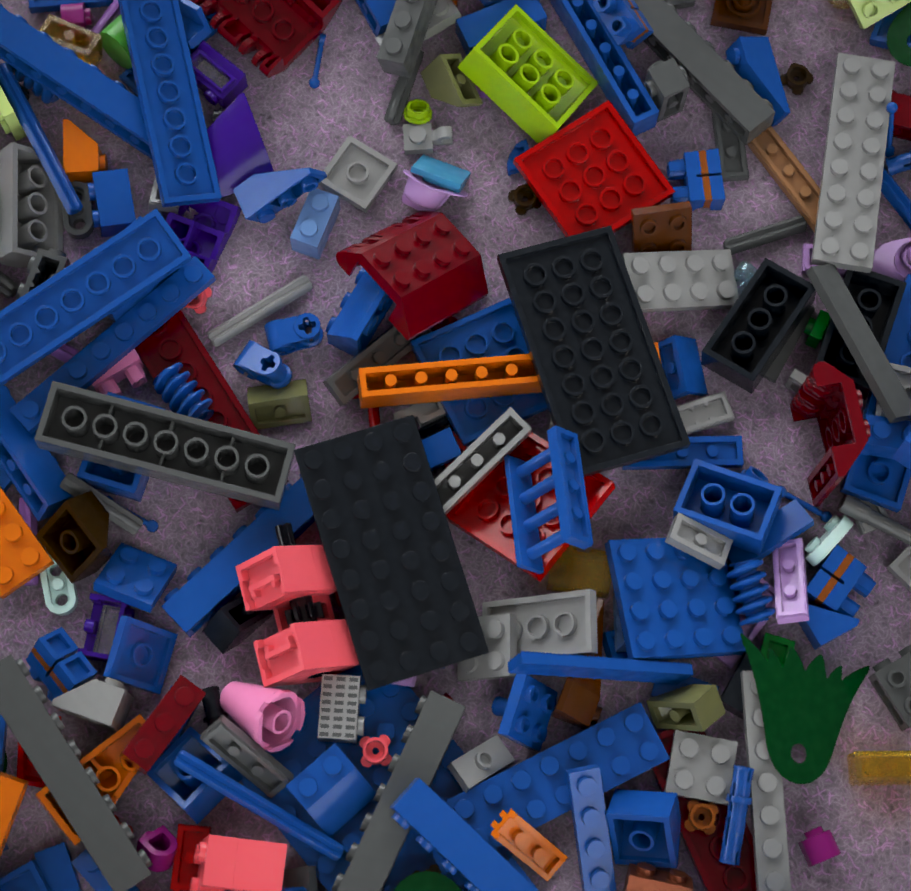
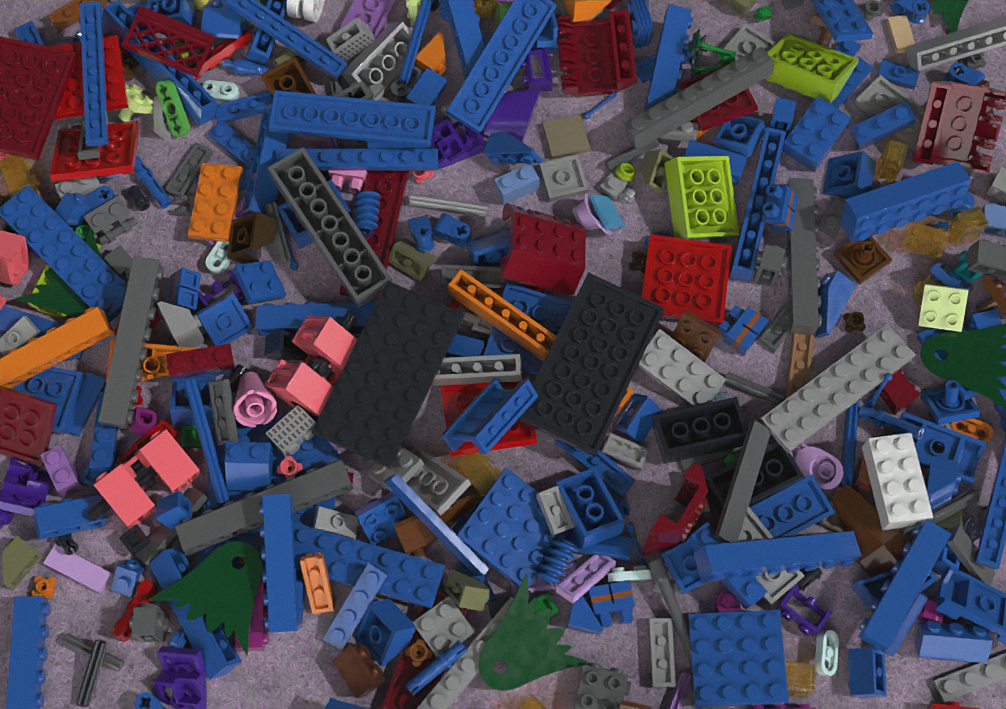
camera: 45 degrees right, 5 degrees down
(229, 815) = (190, 437): none -> green plate
(315, 125) = (566, 136): none -> dark tan tile

